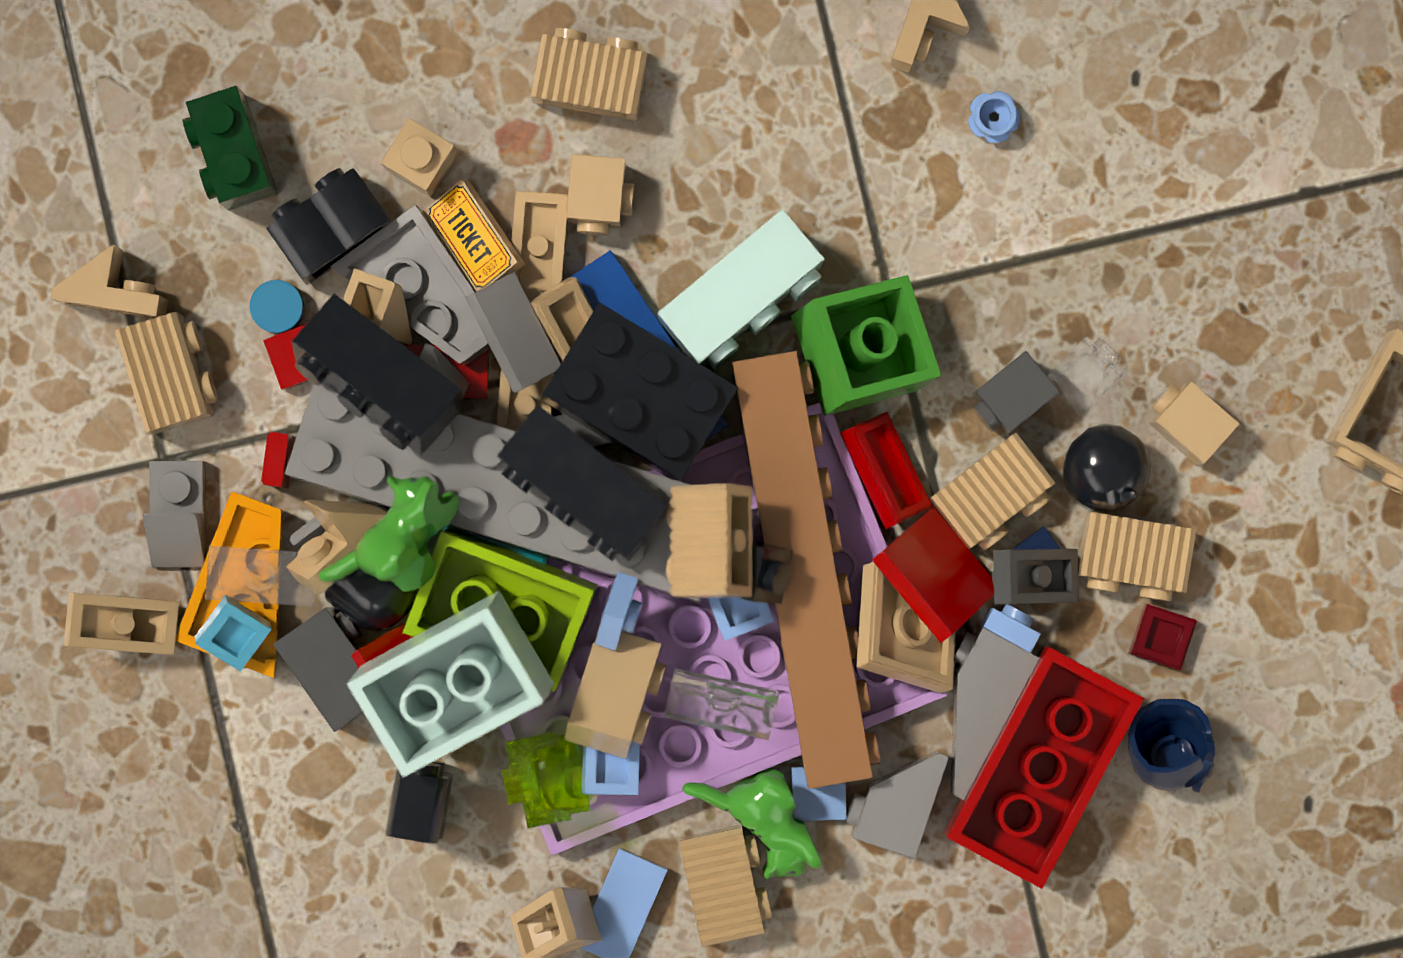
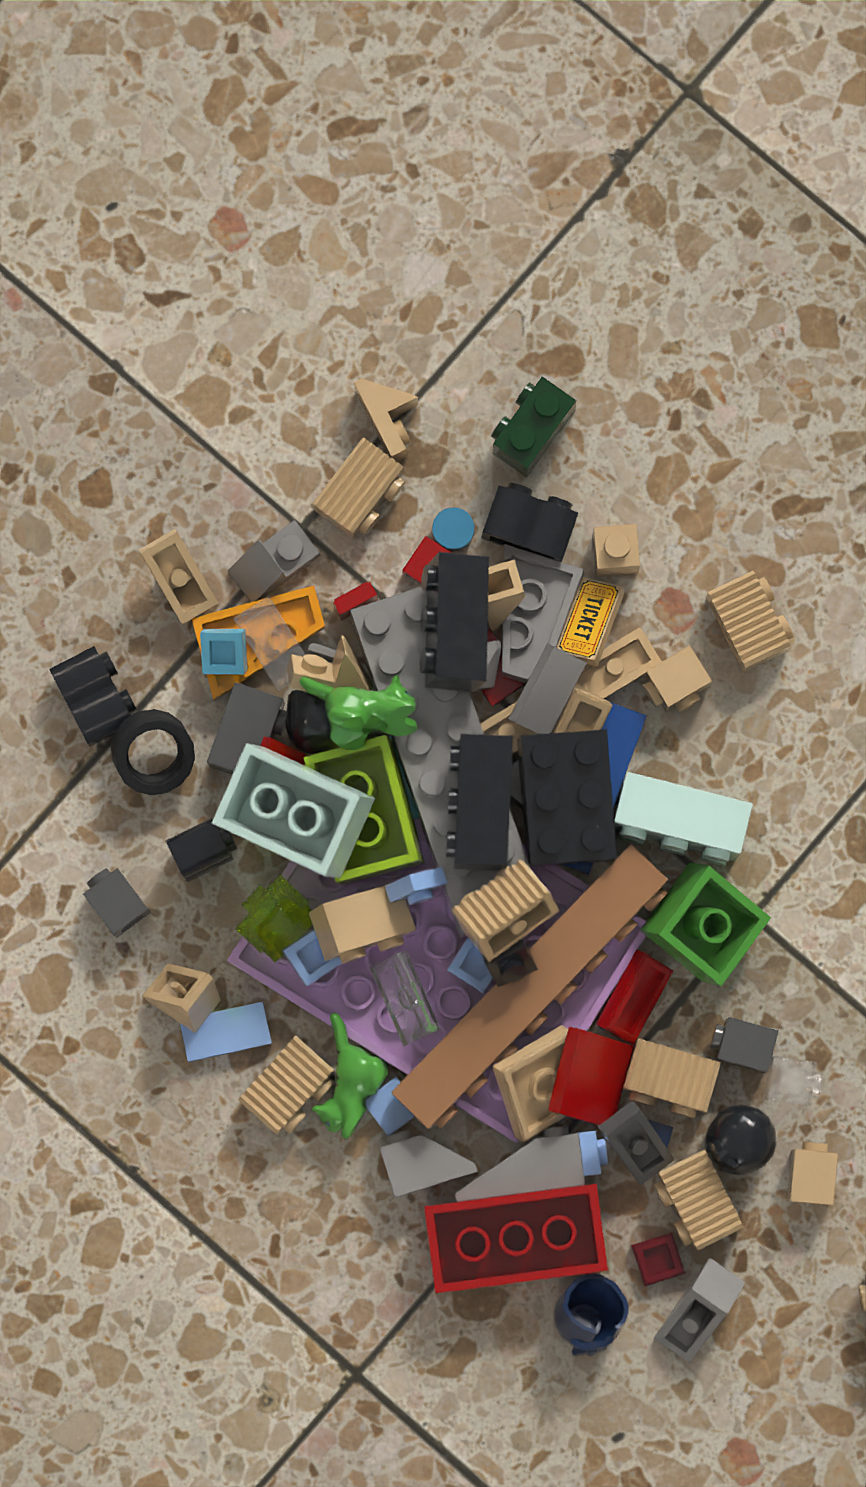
camera: 55 degrees right, 5 degrees down
(180, 797) = (92, 694): none -> black brick
(321, 787) = (170, 777): none -> black tyre
(409, 925) = (115, 901): none -> dark grey brick
(1244, 632) = (700, 1310): none -> light grey slope

